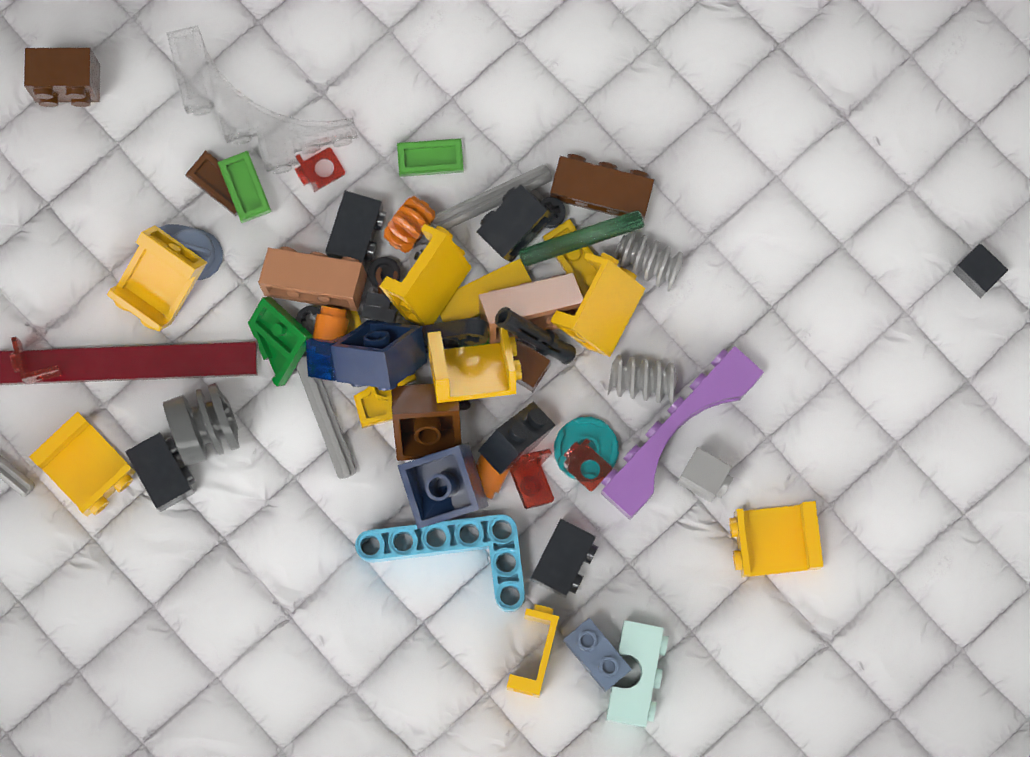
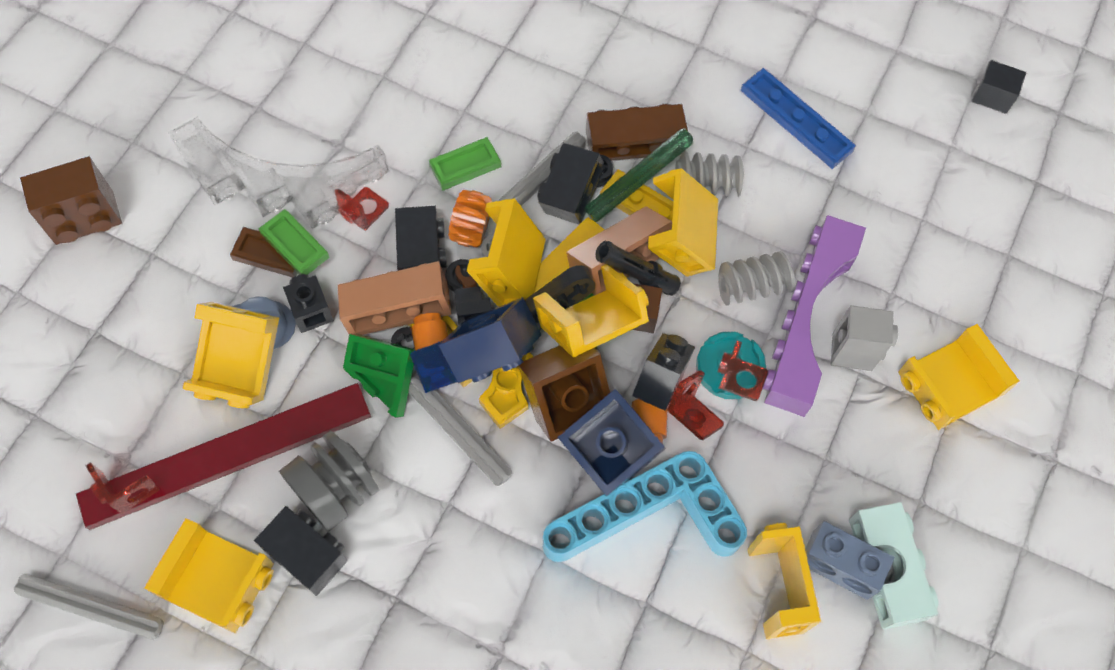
camera: 25 degrees left, 15 degrees down
(238, 260) = (307, 302): none -> black brick
(564, 558) = (763, 476): black brick -> none
(768, 226) = (798, 118): none -> blue tile

